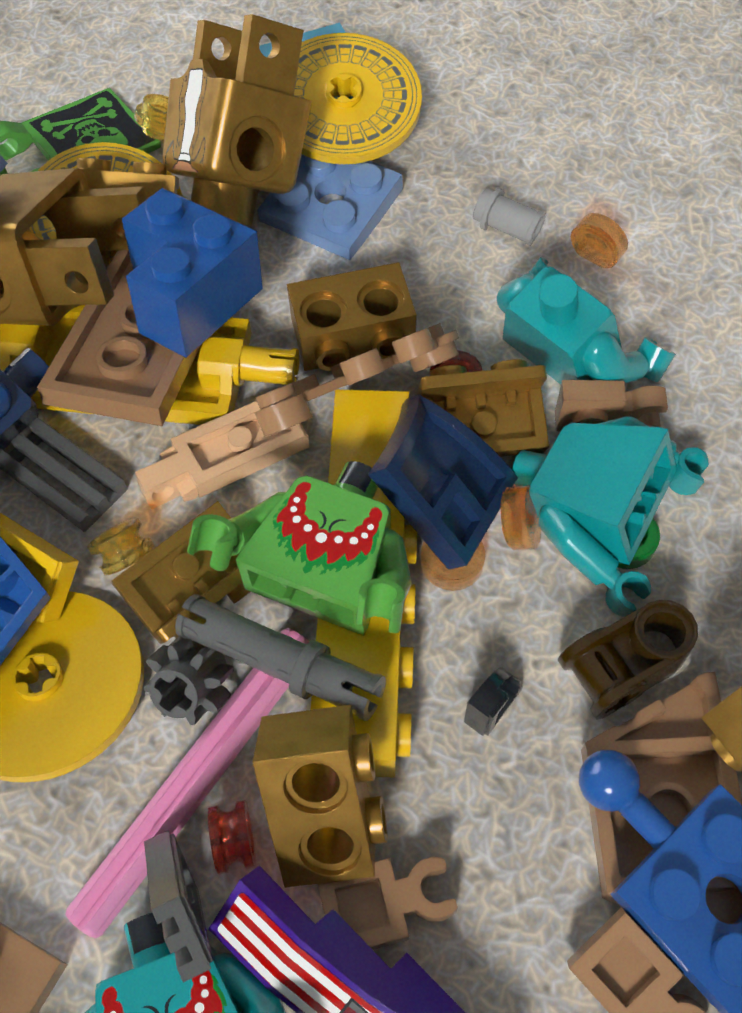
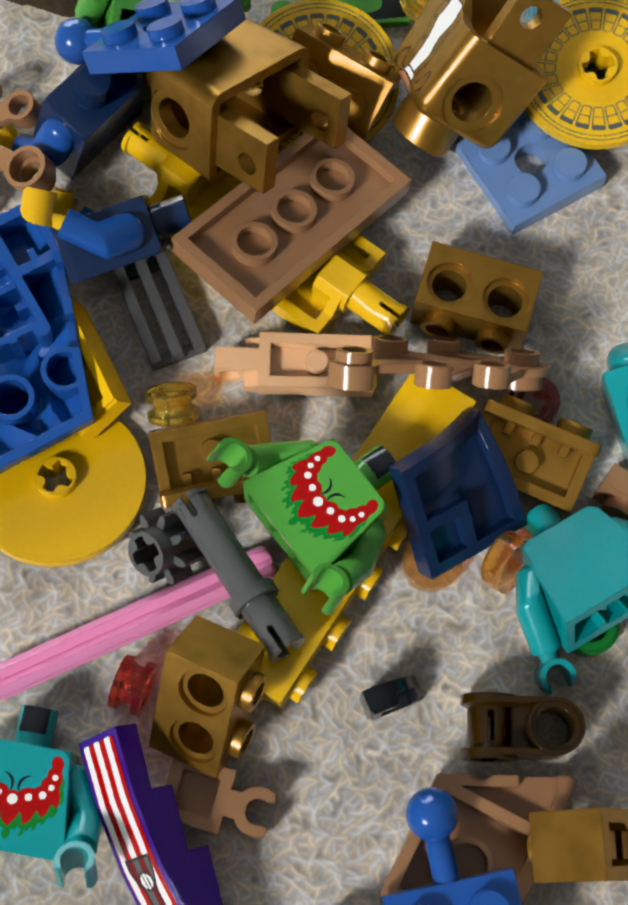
camera: 25 degrees right, 10 degrees up
(177, 905) = (64, 714): dark grey tile -> none
(187, 270) = (354, 197): blue brick -> none

